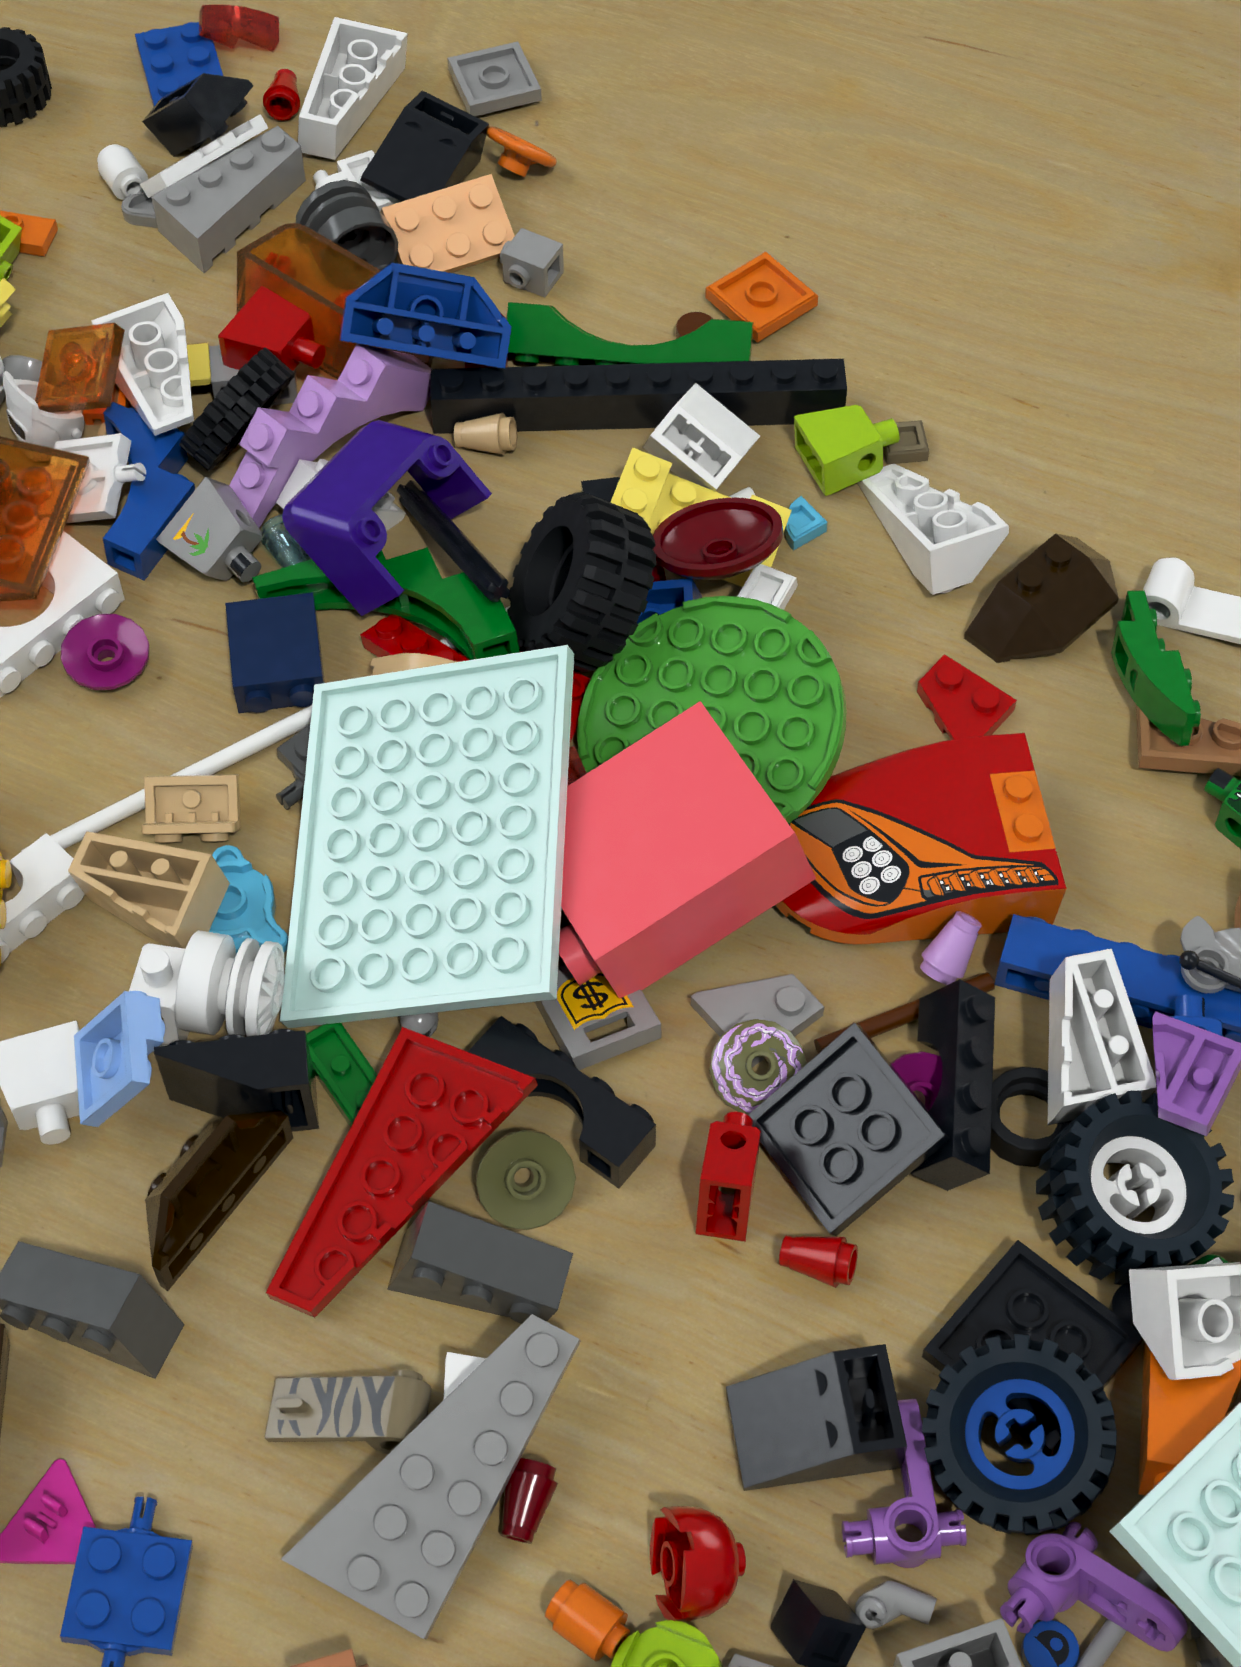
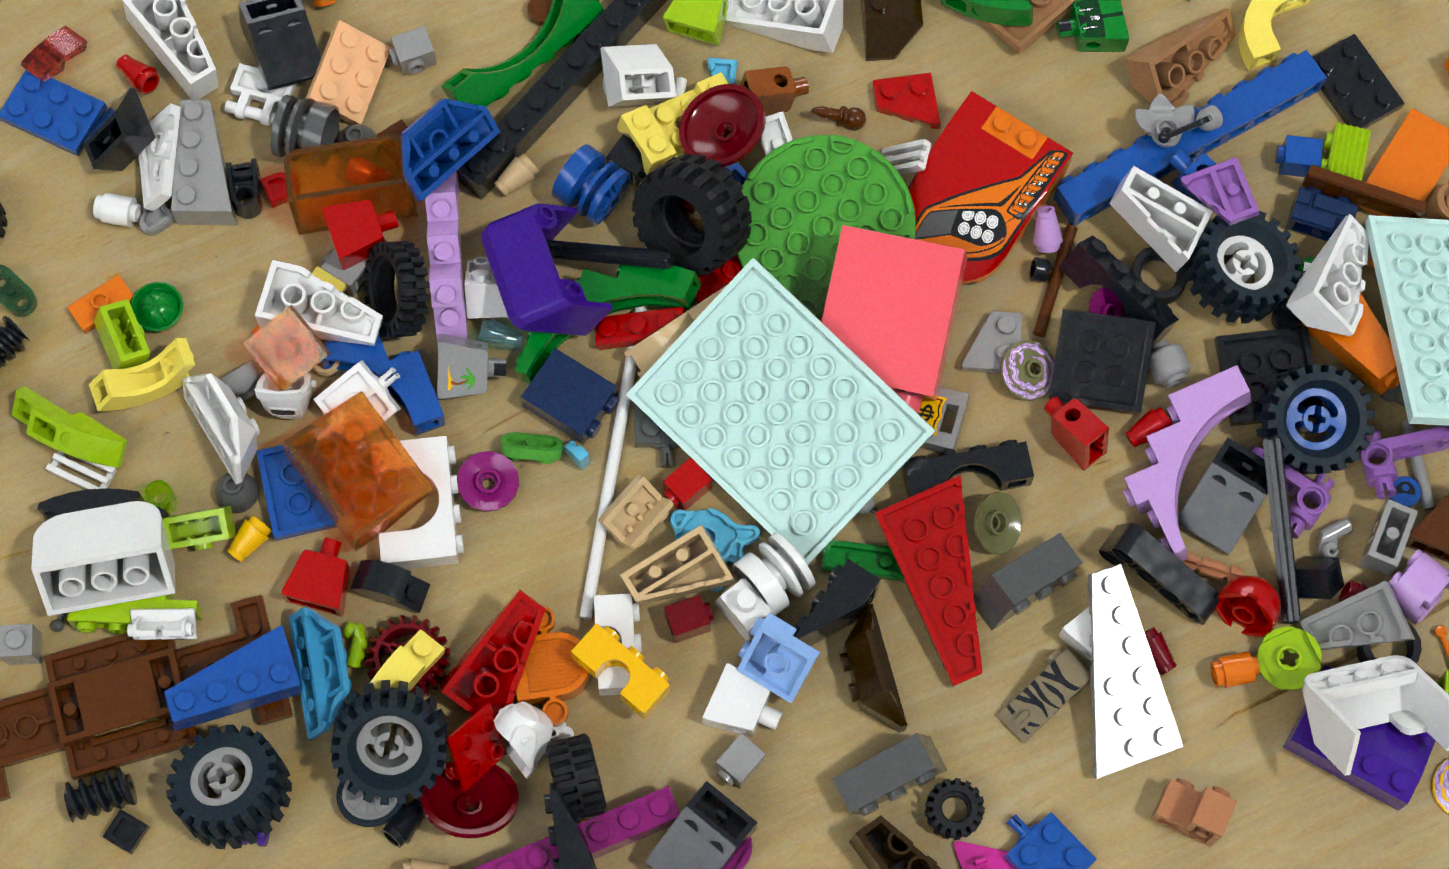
camera: 50 degrees left, 15 degrees up
(47, 270) = (157, 306): none -> green hat
(105, 950) = (688, 618): none -> dark red brick
(114, 1447) = (957, 789): none -> black tyre
(183, 662) = (531, 447): none -> bright green plate
(214, 710) = (577, 454): none -> medium azure tile
(234, 236) = (245, 183): none -> black piece
(269, 831) = (686, 484): none -> red brick
(526, 480) = (591, 184): none -> blue wheel
(635, 1421) = (1162, 570): none -> black beam
(704, 1478) = (1212, 568): none -> nougat axle
(811, 1301) = (1193, 416): none -> lavender arch
(820, 564) = (775, 88): none -> dark orange torso
(826, 1516) = (1281, 530): none -> black axle
(871, 744) = (906, 153): none -> white tile
(880, 672) = (851, 118): none -> reddish brown bar
(898, 984) = (1039, 270): none -> black hinge
(925, 1215) = (1168, 364): none -> light grey head

